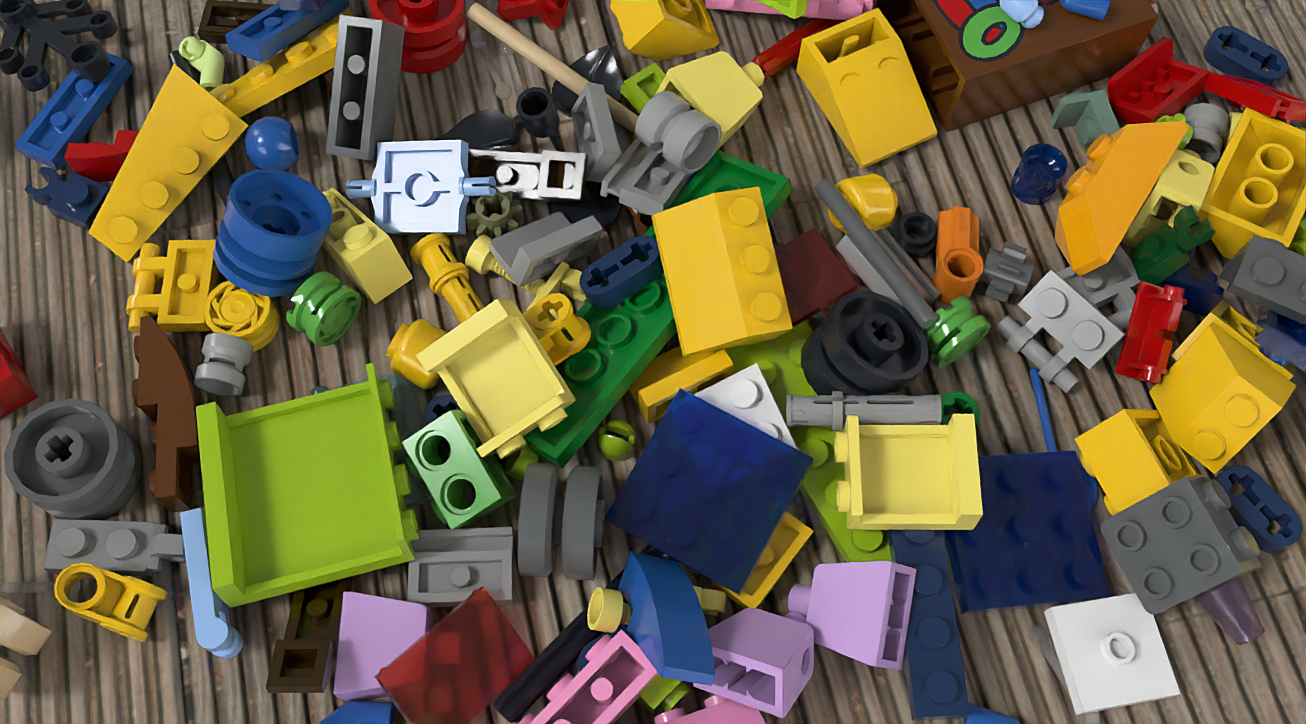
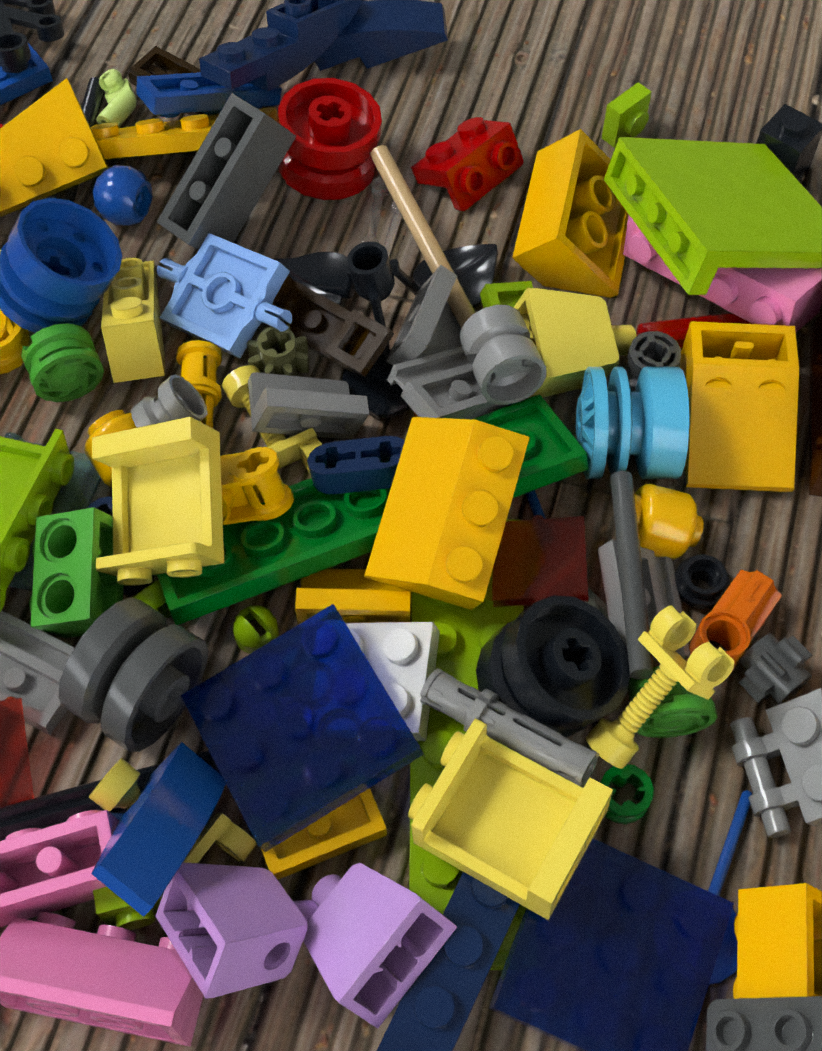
camera: 30 degrees right, 5 degrees down
(445, 307) = (174, 401): none -> light grey wheel
(784, 87) = (651, 350): none -> flat silver wheel
(806, 135) = (640, 423): none -> medium azure wheel
(979, 302) = (699, 675): none -> light yellow bar

